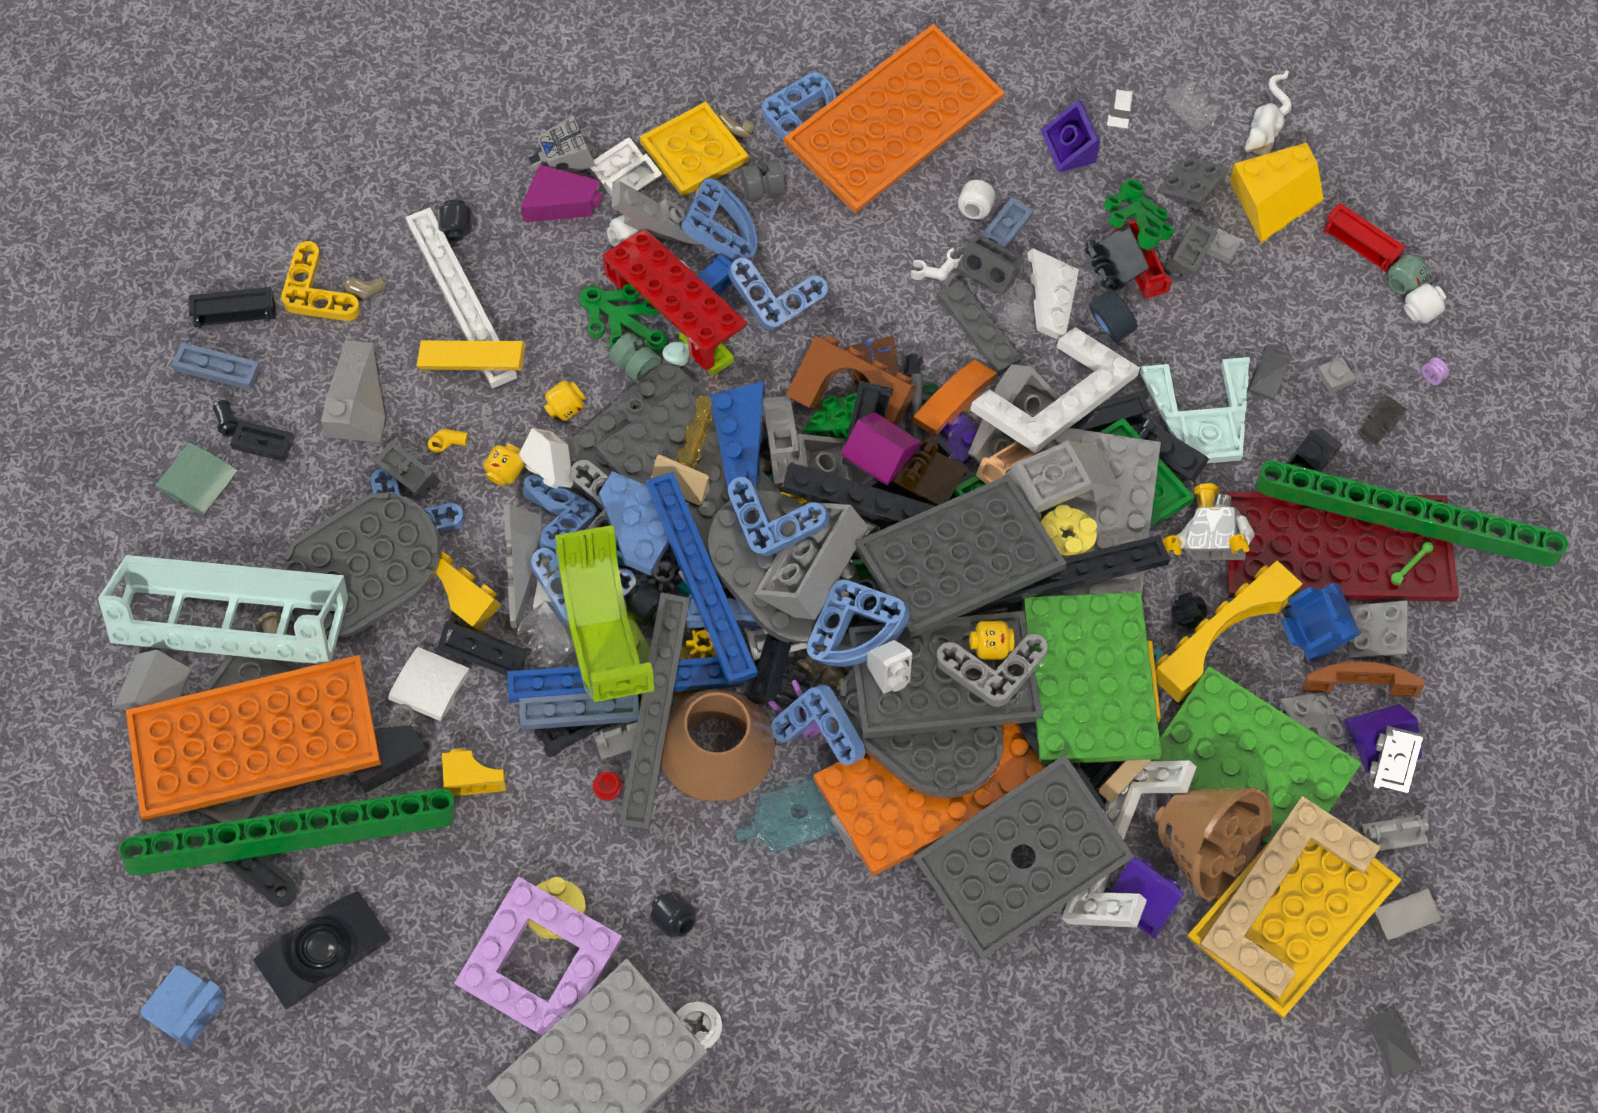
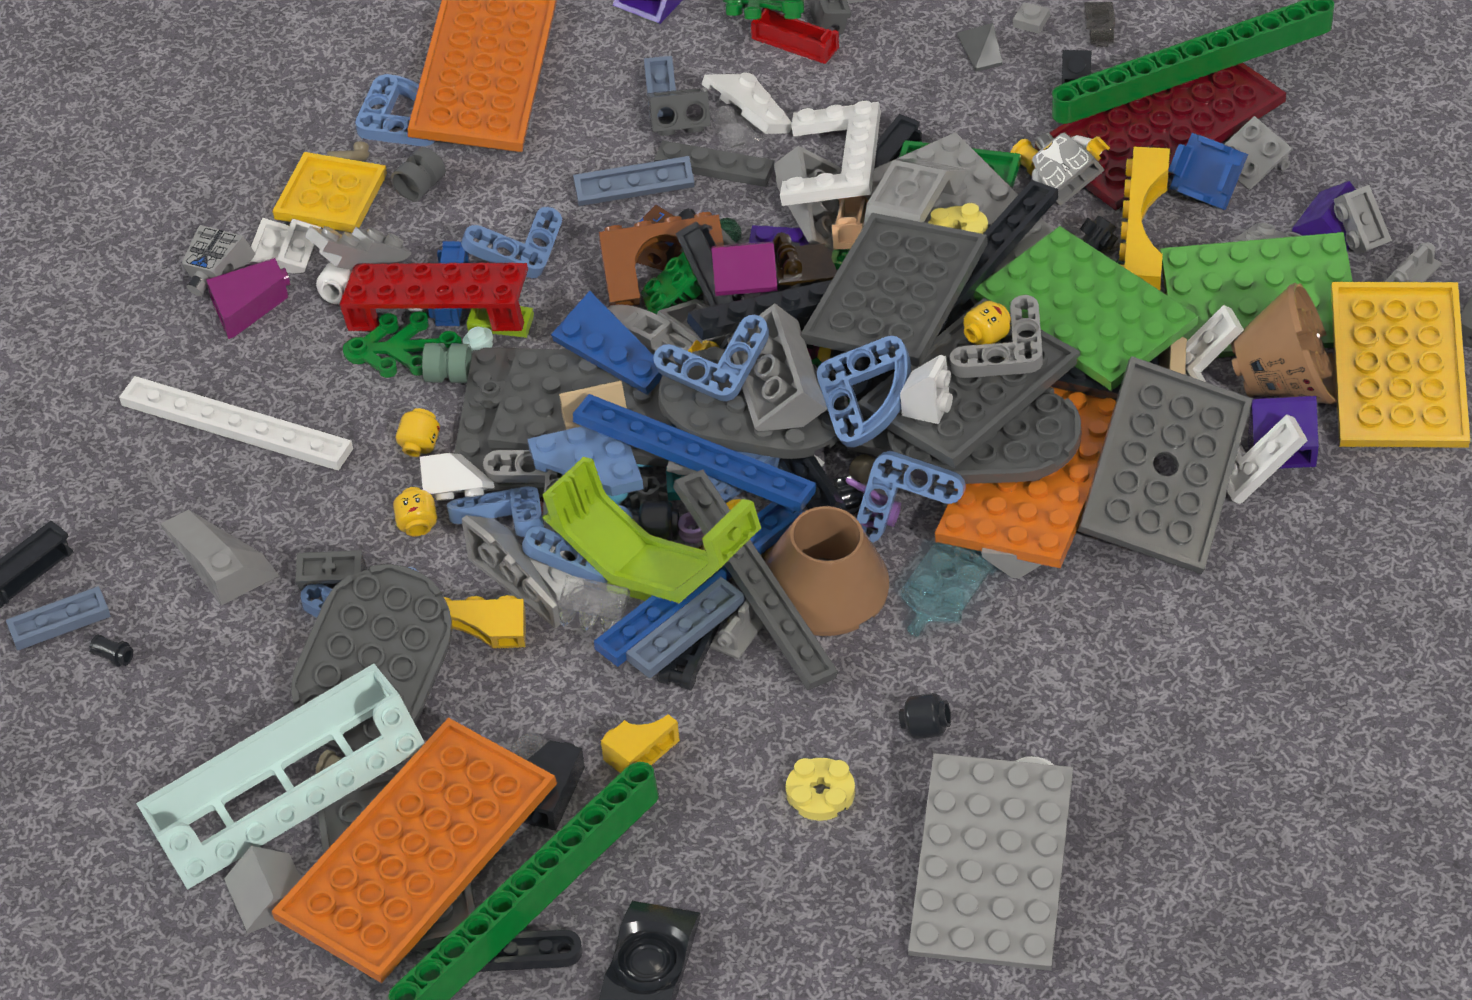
camera: 35 degrees left, 15 degrees down
(196, 478) = (133, 711): sand green slope -> none
(262, 440) = (166, 642): black plate -> none
(304, 289) = (81, 513): yellow beam -> none
(364, 289) = (134, 476): dark tan arm -> none
(429, 683) = (525, 709): white slope -> none
(445, 438) = (337, 531): yellow arm -> none
(455, 219) = (168, 369): black head -> none
(471, 355) = (297, 452): yellow tile -> none
(482, 648) = (548, 647): black container -> none
(520, 906) = (880, 775): lavender plate -> none
(607, 786) = (765, 672): red plate -> none
(695, 216) = (430, 223): medium blue beam -> none
(696, 433) = (569, 360): clear yellow plate -> none
(811, 666) = (843, 463): dark tan bush -> none
(905, 300) = (633, 181): none -> sand blue plate
(937, 273) = (623, 154): white arm -> none
(954, 397) = (752, 214): orange slope -> none
(976, 199) = (615, 78): white head -> none
(1113, 315) = (818, 82): black wheel -> none
(1116, 259) = (777, 46): black hinge -> none
(1175, 452) = (978, 136): black plate -> none
(1210, 431) = (975, 117): light aqua wing -> none
(1227, 936) = (1370, 412): tan plate -> none
(1397, 577) = (1229, 108): bright green hinge -> none
(1399, 680) = (1301, 174): dark orange slope -> none

